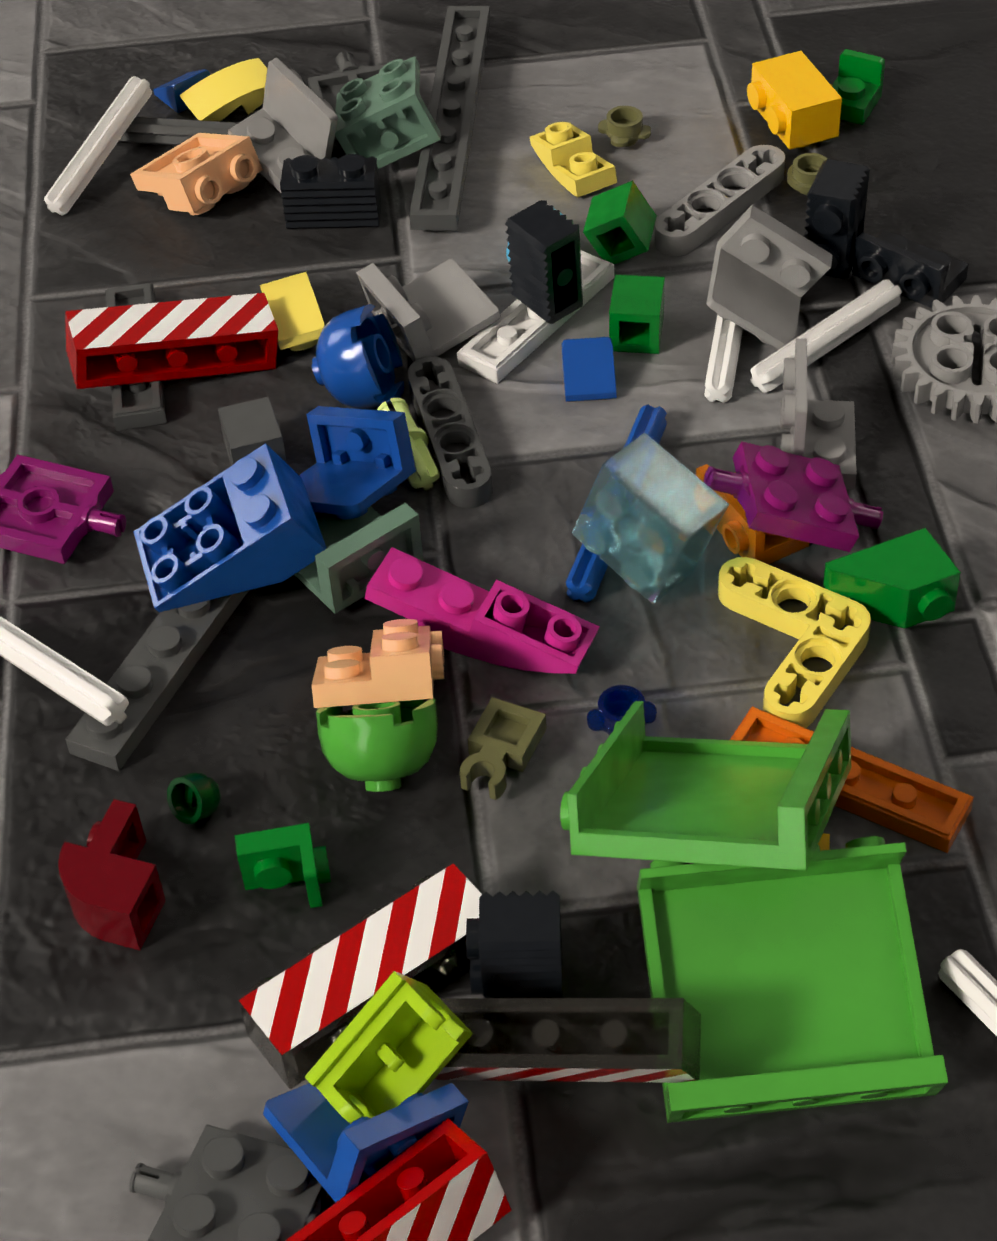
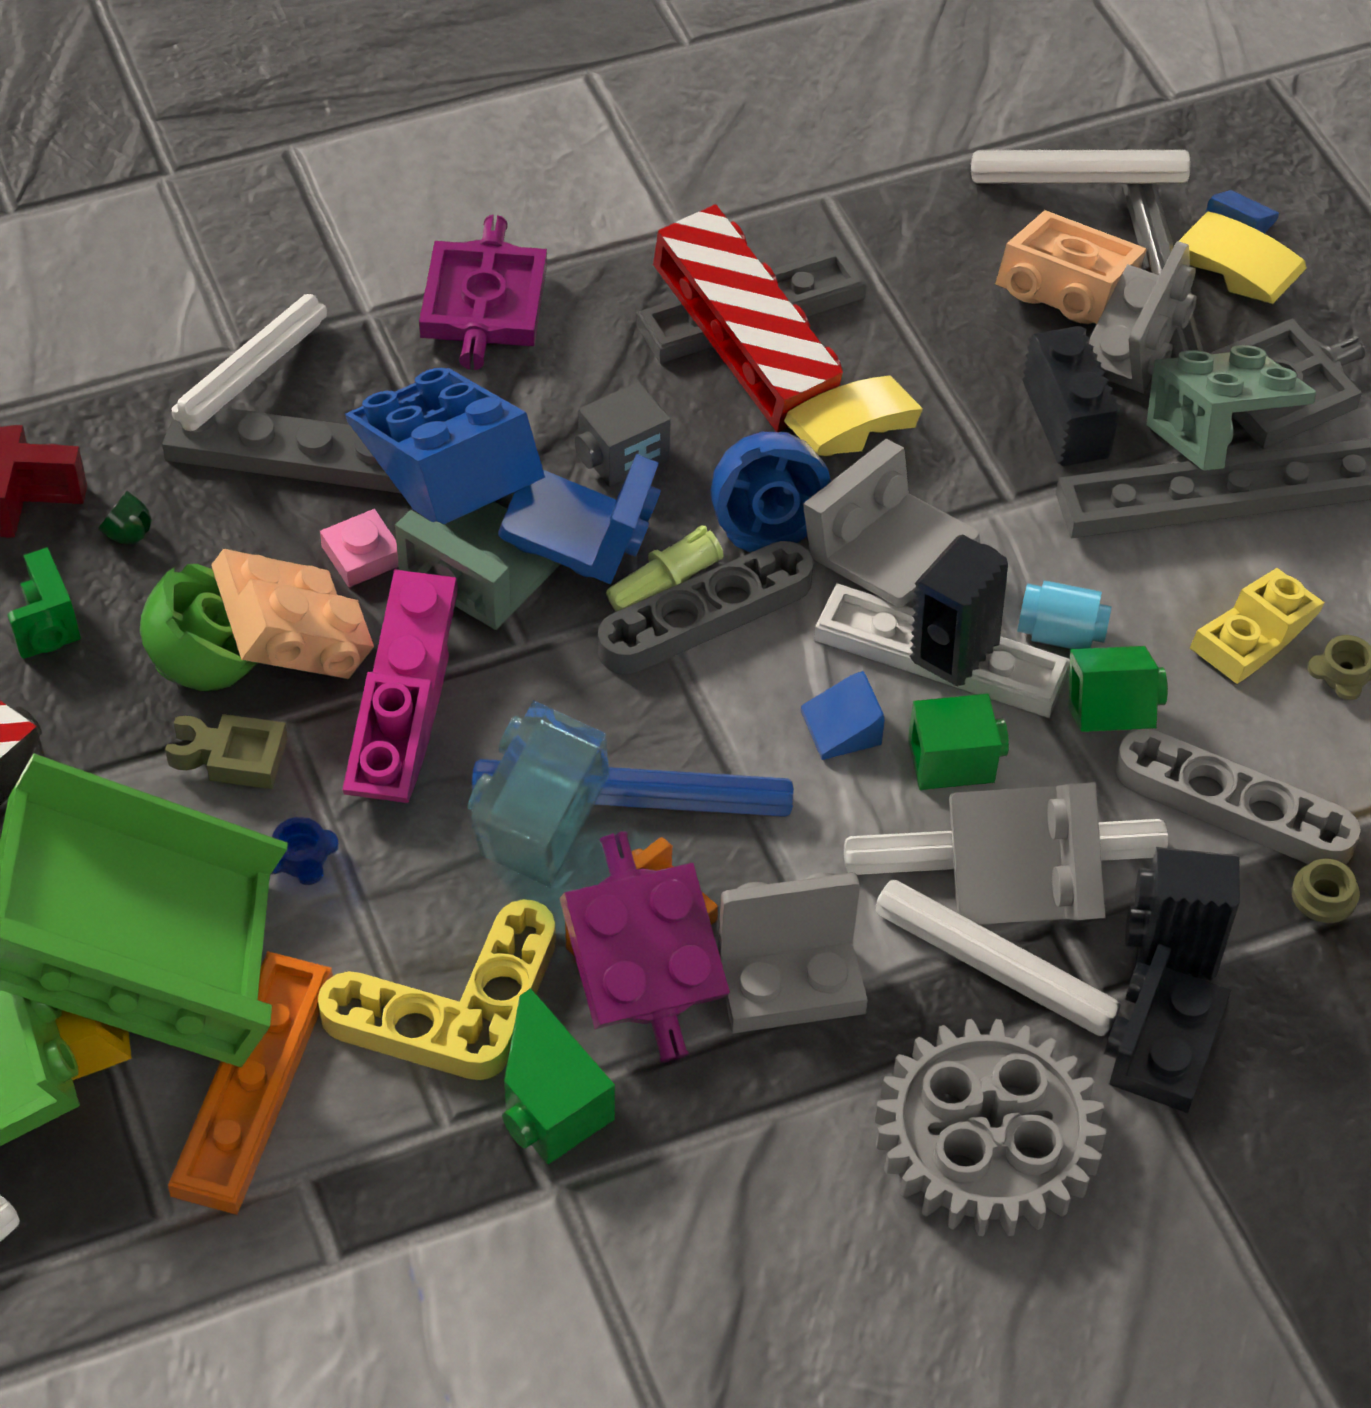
camera: 70 degrees right, 5 degrees up
(296, 635) = (360, 547): none -> bright pink plate

